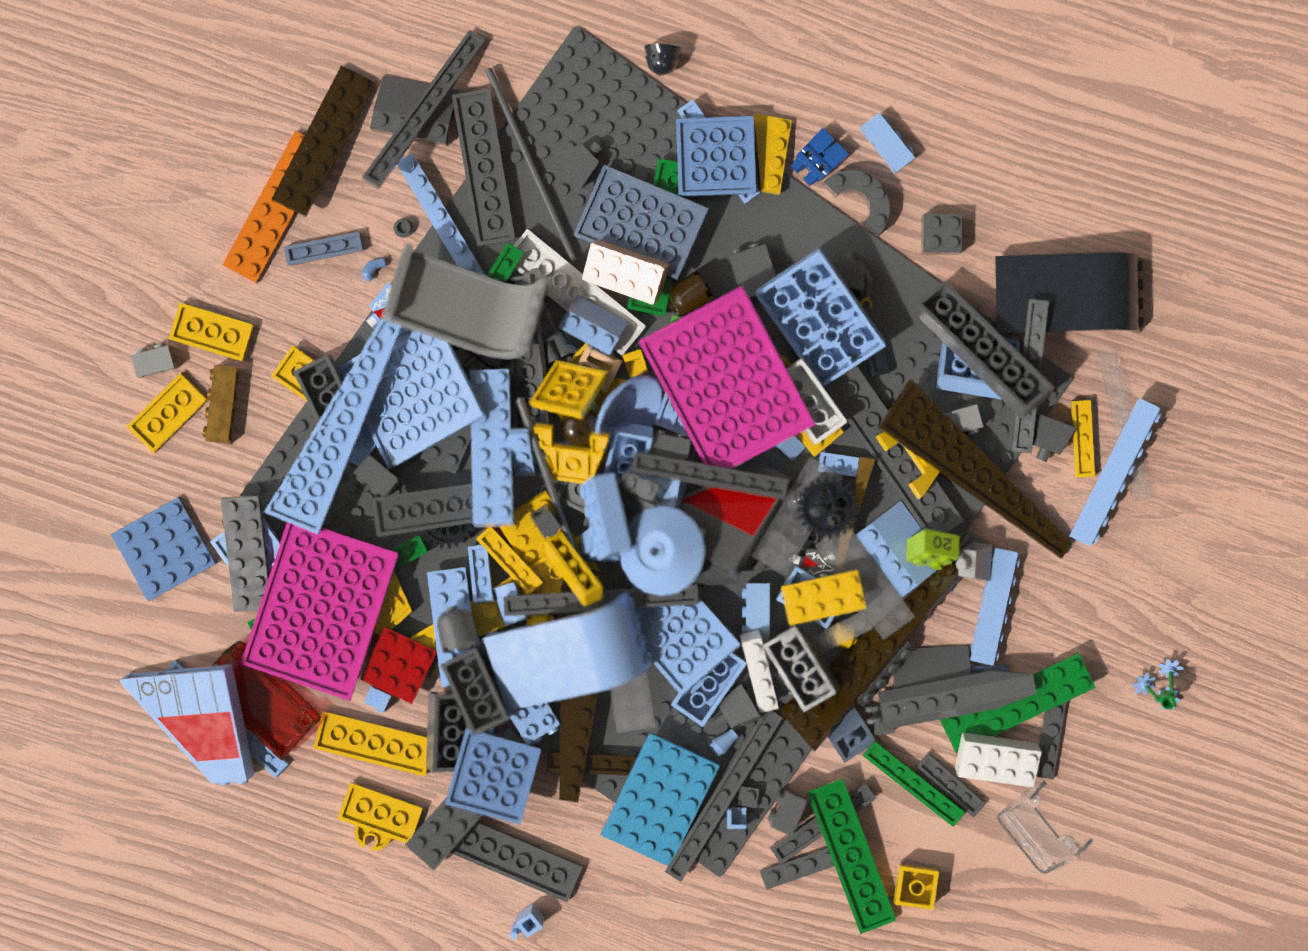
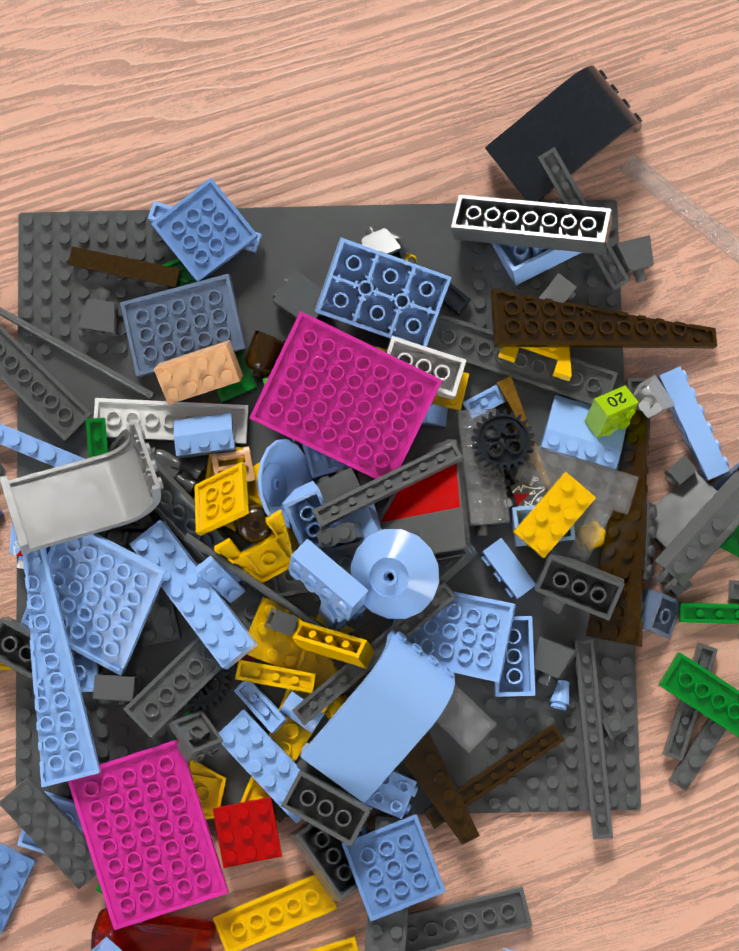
camera: 30 degrees left, 5 degrees down
(378, 698) = (251, 872): light blue panel -> none
(413, 561) = (196, 736): none -> dark grey plate
(457, 630) = (274, 766): dark grey cylinder -> none
(628, 137) = (124, 267): none -> dark brown tile
(635, 363) = (260, 440): yellow panel -> none
(659, 799) = (544, 781): dark azure plate -> none
(662, 58) = (105, 185): black helmet -> none
(736, 818) = (618, 750): light blue panel -> none
(759, 671) = (546, 615): white brick -> none
(772, 144) = (245, 194): yellow wing -> none
(787, 811) = (655, 713): dark grey brick -> none
(812, 159) = (286, 174): blue hips -> none
(869, 189) = (344, 170): dark grey brick -> none
(887, 142) = (333, 124): light blue brick -> none
(941, 234) = (429, 164): dark grey brick -> none
(954, 636) = (680, 471): none -> dark grey brick
(1082, 439) = (661, 241): yellow plate -> none
(1114, 472) = (706, 246): light blue brick -> none

